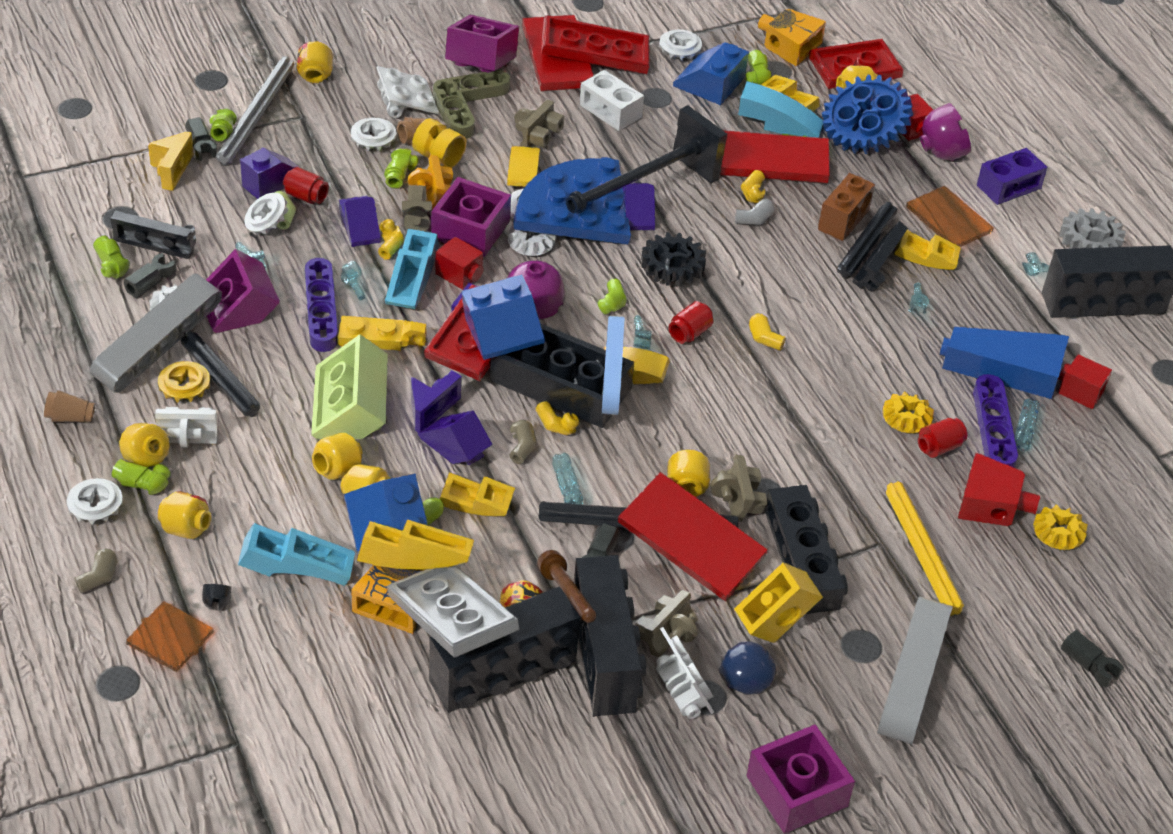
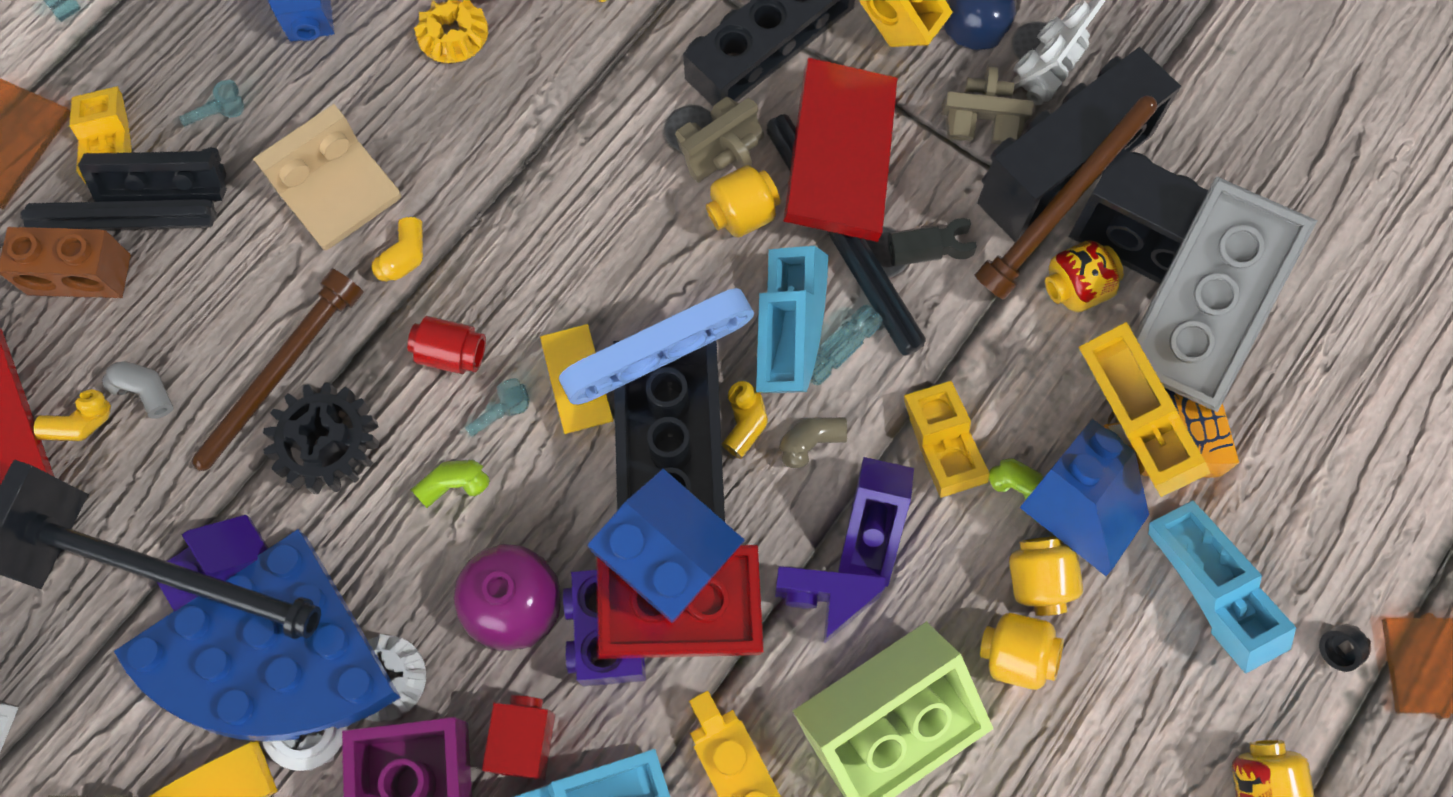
camera: 115 degrees left, 25 degrees up
(599, 459) = (791, 319): none -> medium azure slope
(755, 297) = (334, 296): none -> reddish brown piece
(831, 321) = (327, 177): none -> tan bracket

